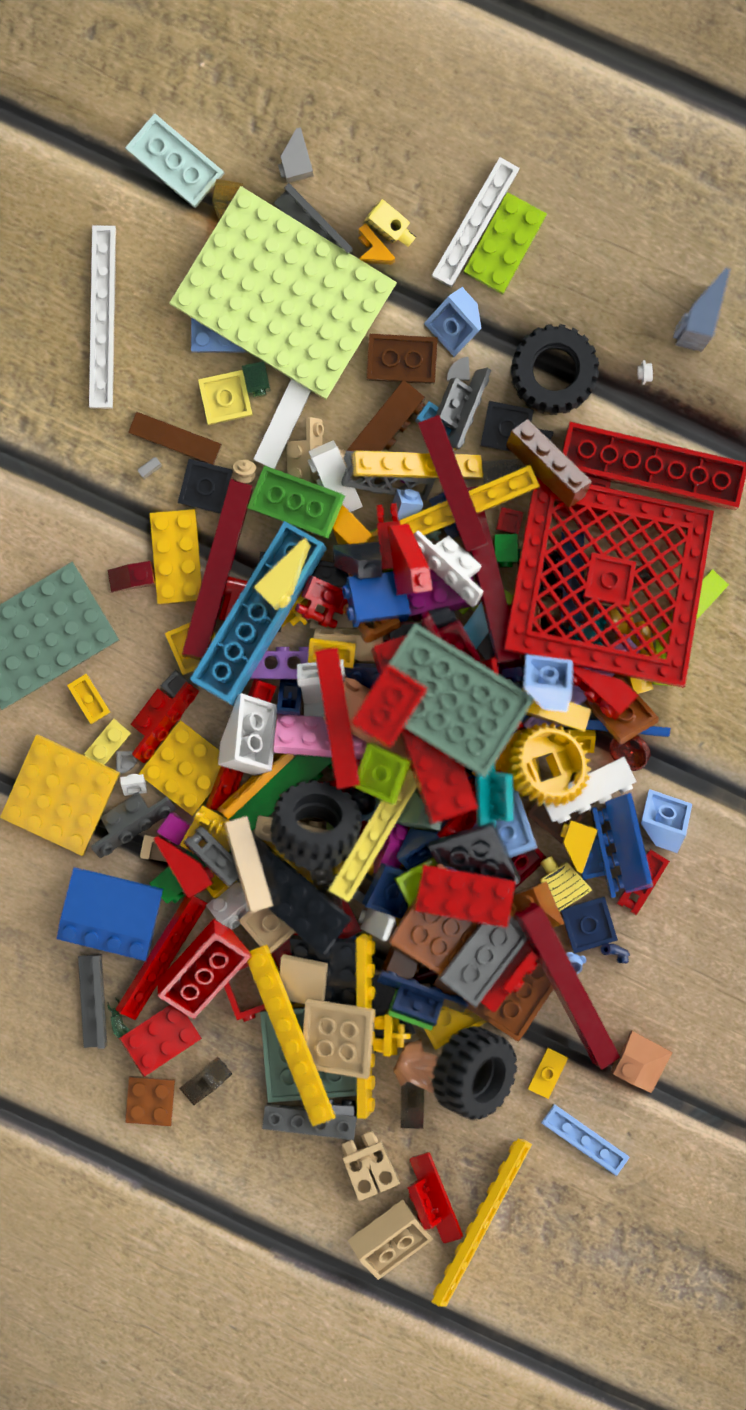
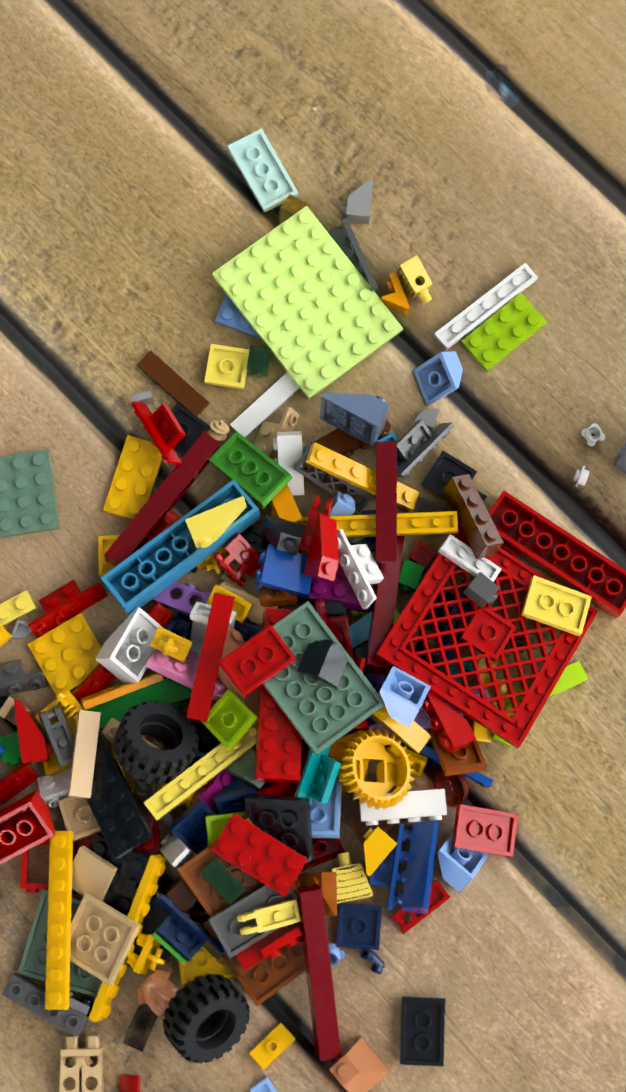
camera: 15 degrees right, 10 degrees down
(88, 698) = (13, 566): yellow plate -> none
(102, 317) = (154, 268): white plate -> none
(131, 576) = (91, 480): dark red slope -> none
(133, 784) = (19, 651): white plate -> none
(174, 683) = (88, 580): dark grey tile -> none
(174, 828) = (36, 699): magenta slope -> none
(186, 494) = (162, 429): none -> red bracket
(290, 719) = (171, 644): none -> yellow hips
(391, 405) = (355, 414): none -> sand blue slope
(402, 358) = (384, 383): reddish brown plate -> none
(438, 935) = (222, 880): none -> clear green plate
(456, 680) = (323, 662): none -> black slope
(501, 952) = (271, 917): none -> light yellow hinge
(554, 510) = (465, 558): none -> white tile
(562, 339) = (513, 420): black tyre -> none
(587, 539) = (482, 590): none -> dark grey brick
(639, 314) = (594, 428): none -> white plate
(669, 524) = (556, 605): none -> light yellow plate
(679, 781) = (484, 830): none -> plate
(690, 1001) = (422, 1031): none -> black plate

